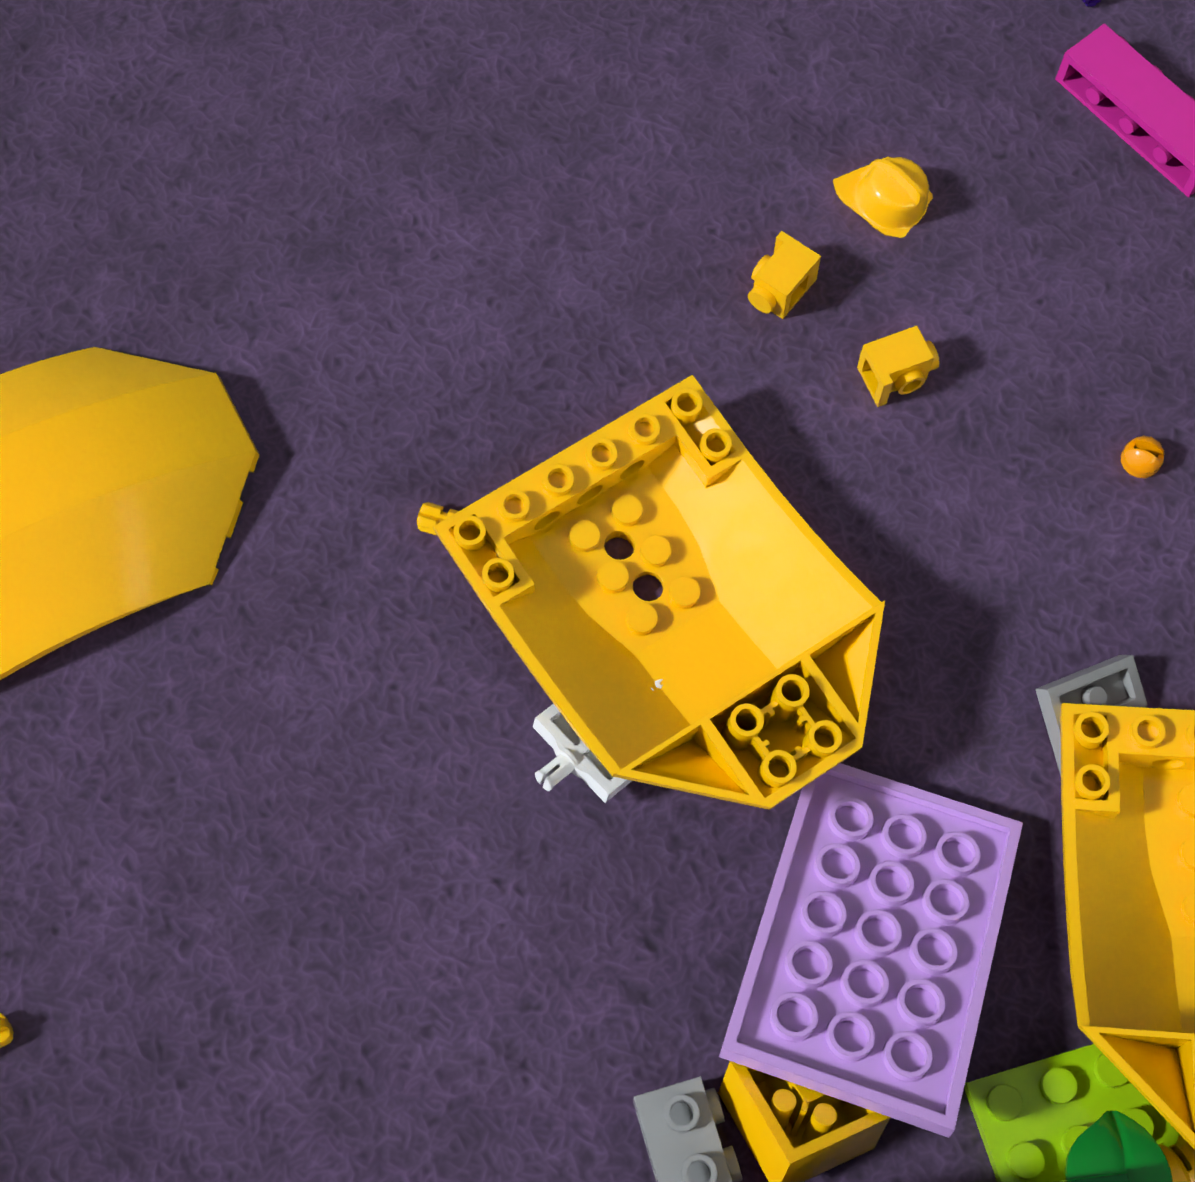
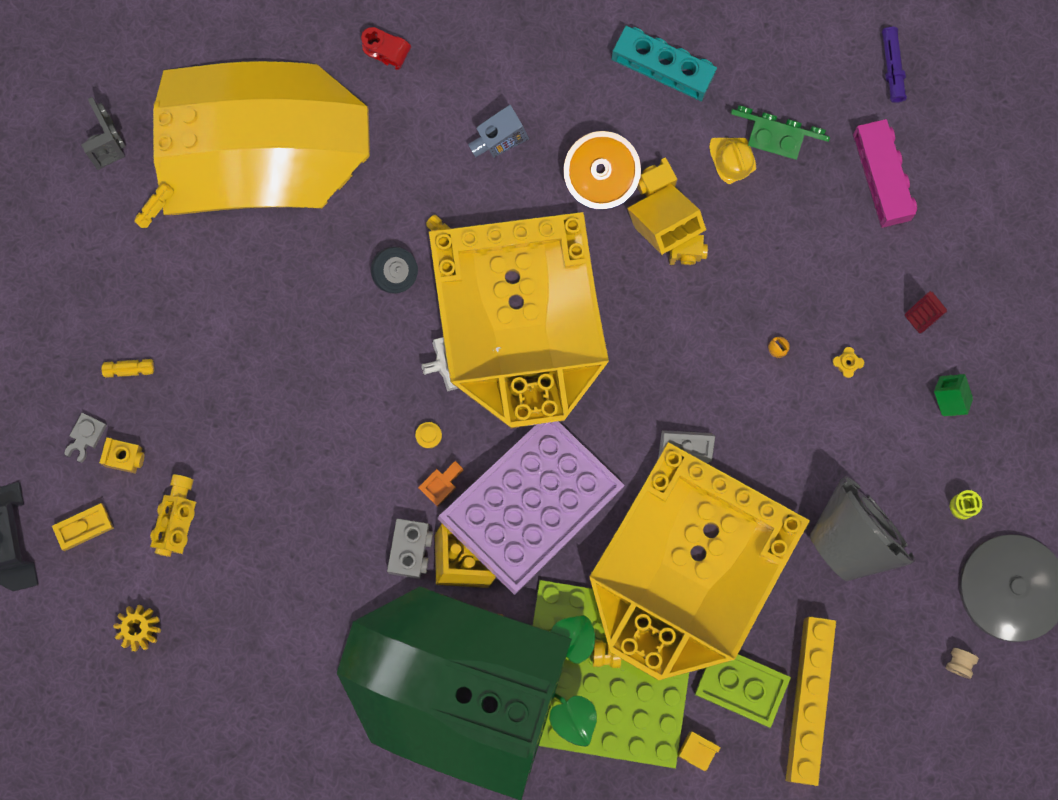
camera: 20 degrees right, 10 degrees up
(206, 266) = (387, 49): none -> red piece
(398, 629) = (394, 270): none -> black wheel
(476, 313) = (505, 127): none -> sand blue torso
(610, 903) = (428, 435): none -> yellow plate
(678, 990) = (439, 486): none -> orange plate
(694, 95) = (669, 75): none -> teal brick
(708, 277) = (615, 182): none -> light orange dish
(842, 325) = (667, 219): none -> yellow brick
(941, 127) = (776, 136): none -> green bracket

